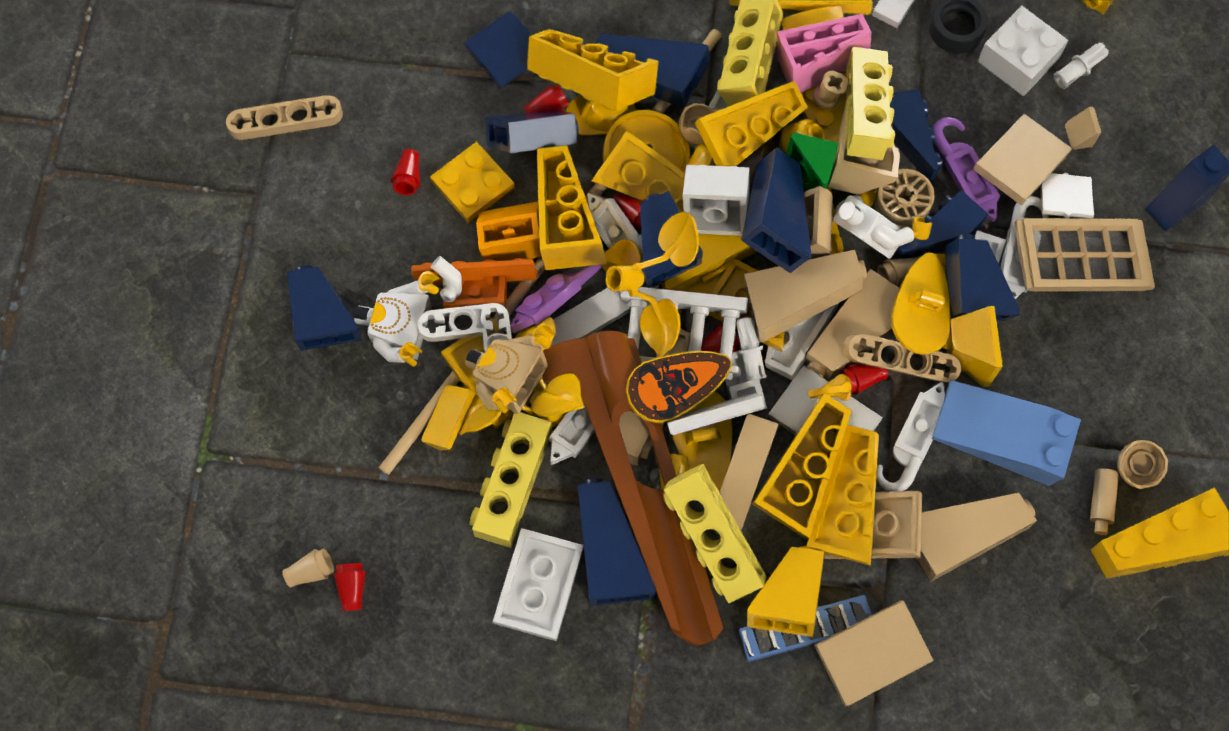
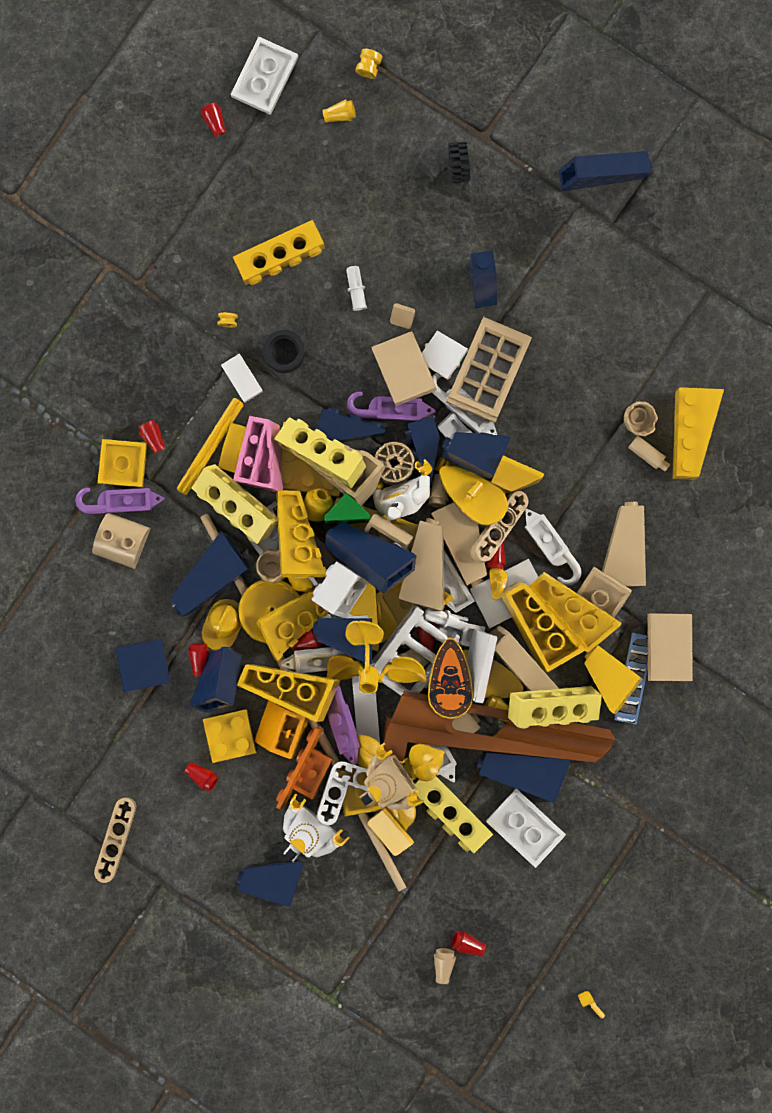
camera: 60 degrees left, 15 degrees up
(451, 279) = (300, 786): white arm -> none
(591, 69) = (199, 620): yellow wedge -> none
(832, 86) = (293, 460): tan bush -> none
(1007, 431) = (578, 489): medium blue slope -> none
(1022, 50) = (327, 321): white brick -> none

